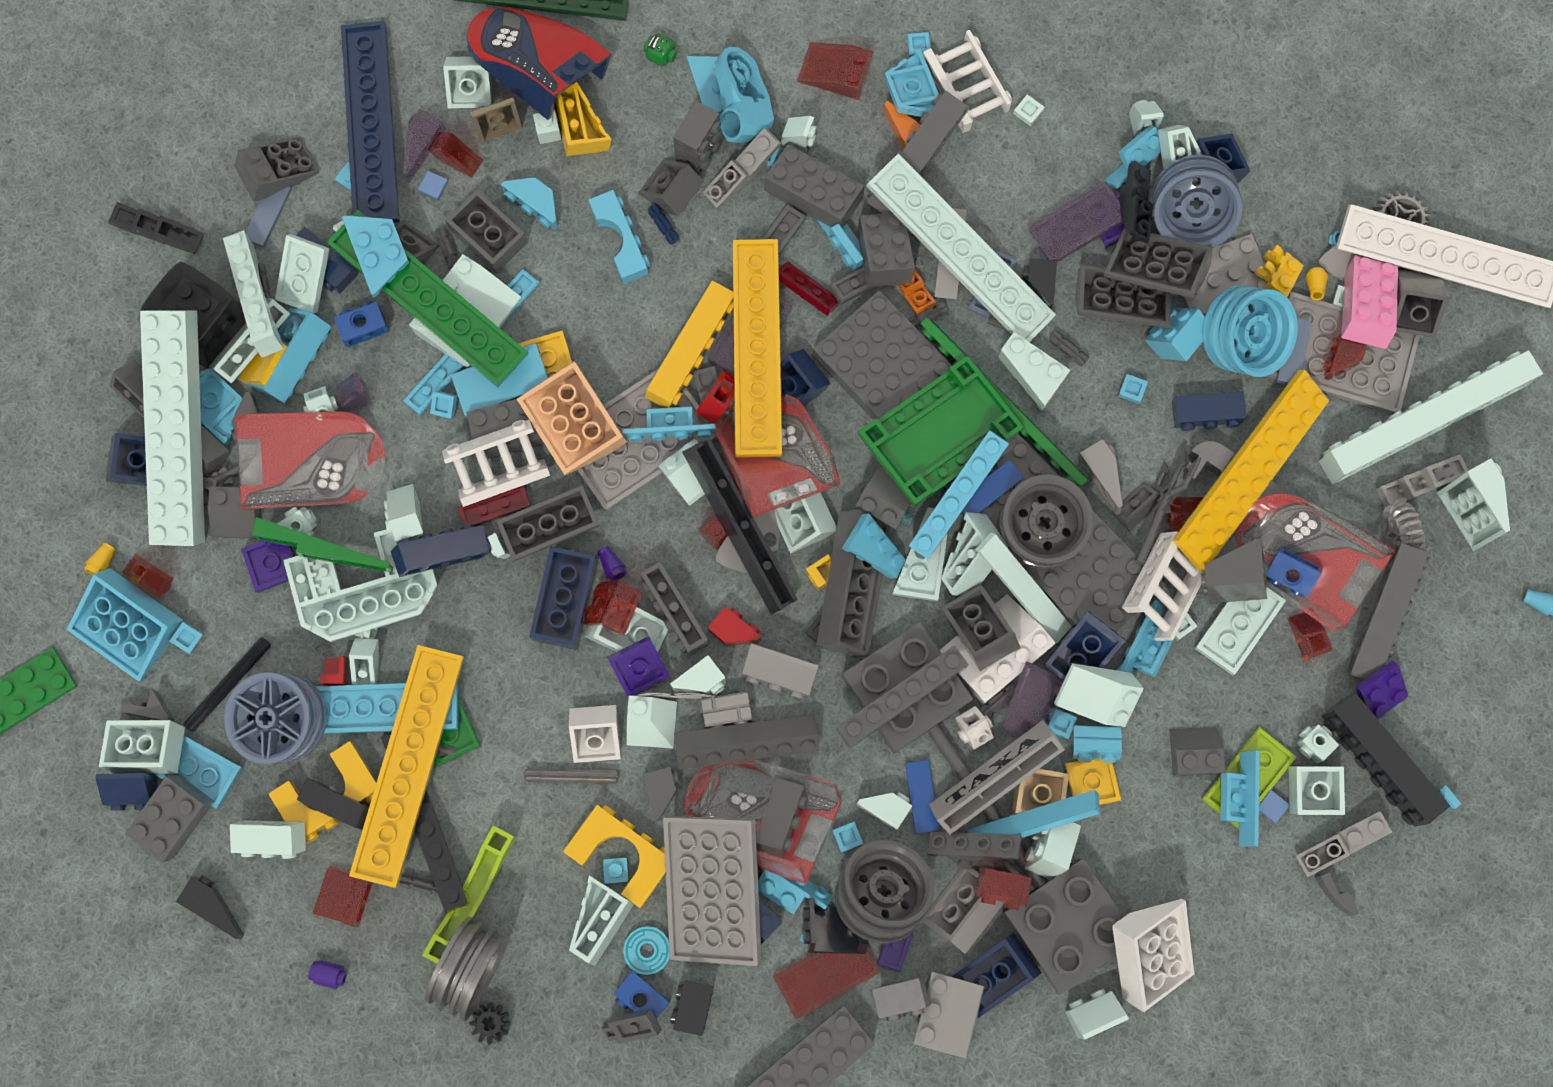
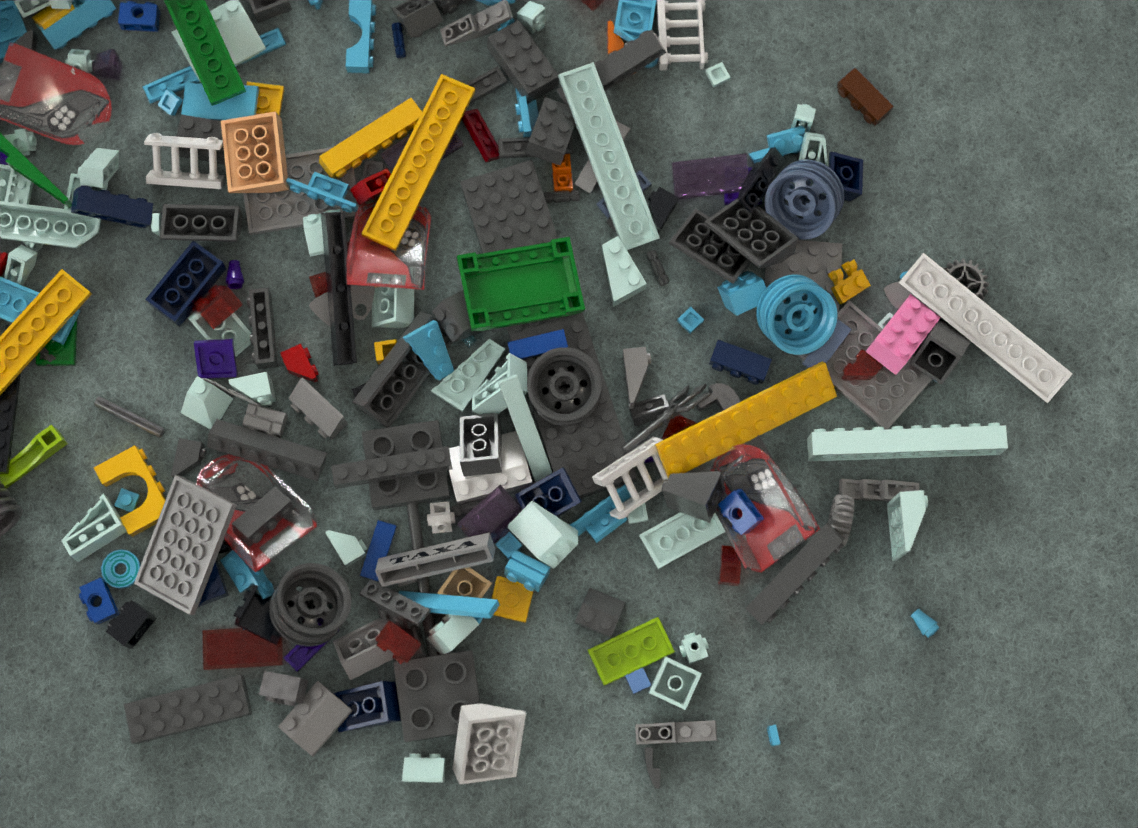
camera: 25 degrees right, 0 degrees up
(495, 507) = (170, 194): dark red plate -> none
(594, 733) = (160, 393): white slope -> none
(632, 1027) = (80, 617): dark grey hinge -> none
(801, 377) = (442, 200): dark blue slope -> none
(847, 837) = (307, 554): medium azure plate -> none
(959, 494) = (525, 327): medium azure arch -> none
(1030, 429) = (593, 309): green plate -> none
(1197, 66) = (864, 97): none -> reddish brown brick
(1241, 798) = (613, 662): medium azure bracket -> none
(1316, 282) = (873, 302): yellow cone -> none
(1383, 689) = (763, 632): dark purple plate -> none
(1385, 761) = (738, 684): black brick -> none

